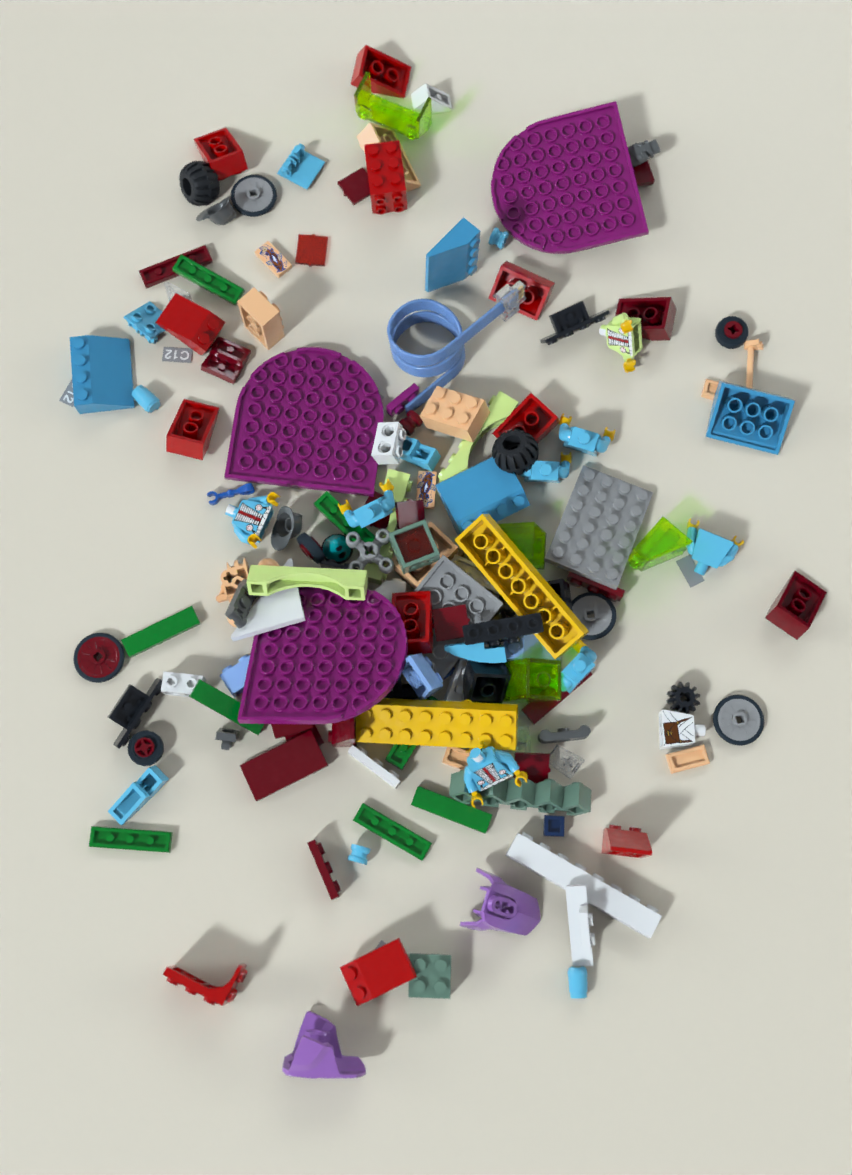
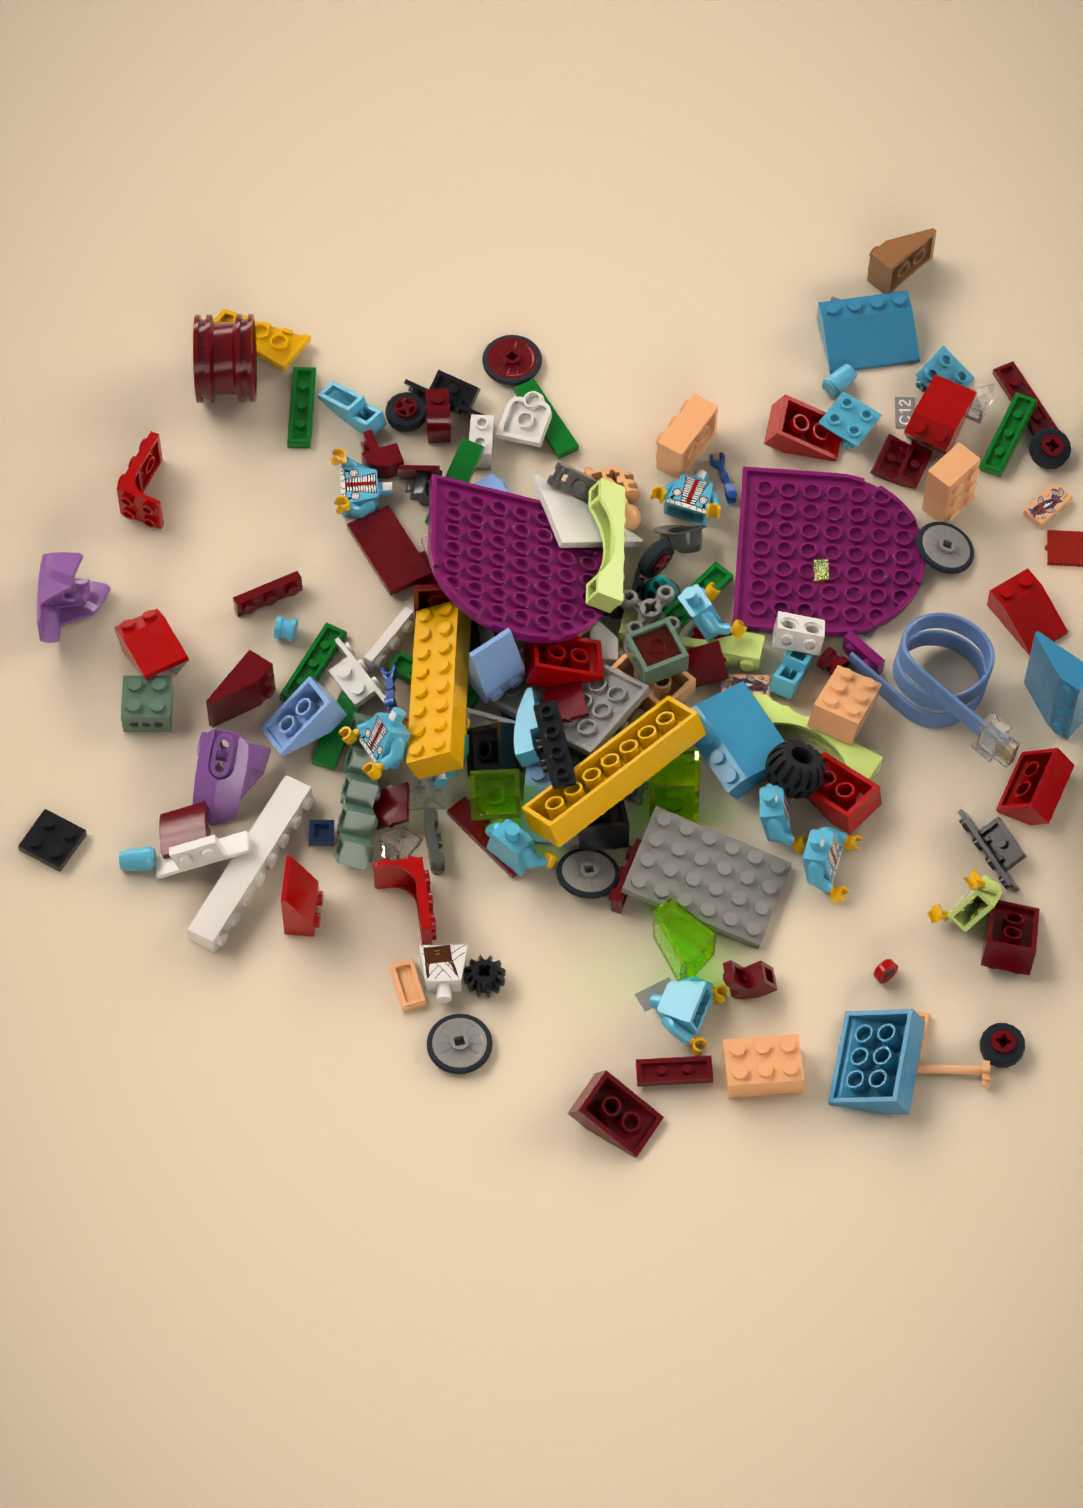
camera: 90 degrees right, 15 degrees down
(39, 347) = (899, 259): none -> medium nougat slope
(59, 869) = (273, 344): none -> yellow wing
(88, 905) = (225, 358): none -> dark red wheel
(155, 718) = (438, 415): none -> dark red brick
(163, 647) = (525, 420): none -> white plate
(187, 392) = (849, 420): none -> medium azure hinge
(195, 517) = (686, 436): none -> light nougat brick
(196, 773) = (383, 459): none -> dark red brick
(212, 737) = (410, 471): none -> dark red piece
(223, 251) = (1042, 452): none -> black wheel
(223, 789) = (358, 487): none -> torso
(309, 334) = (945, 547): none -> light grey wheel
(328, 424) = (821, 569): none -> clear neon green piece
(369, 282) = (1025, 609): none -> red slope
(414, 795) = (353, 679): none -> white bracket
(419, 886) = (242, 689): none -> dark red slope
(443, 765) = (390, 678): none -> blue piece
(451, 839) = (303, 718): none -> light blue slope
(554, 941) = (183, 826): none -> slope
(556, 1058) = (52, 840): none -> black plate
(610, 743) = (411, 877): none -> red bracket
(674, 405) = (885, 970): none -> red tile
(685, 500) = (749, 981): none -> dark red brick
(755, 496) = (762, 1066): none -> light nougat brick
(758, 560) = (674, 1071): none -> dark red plate

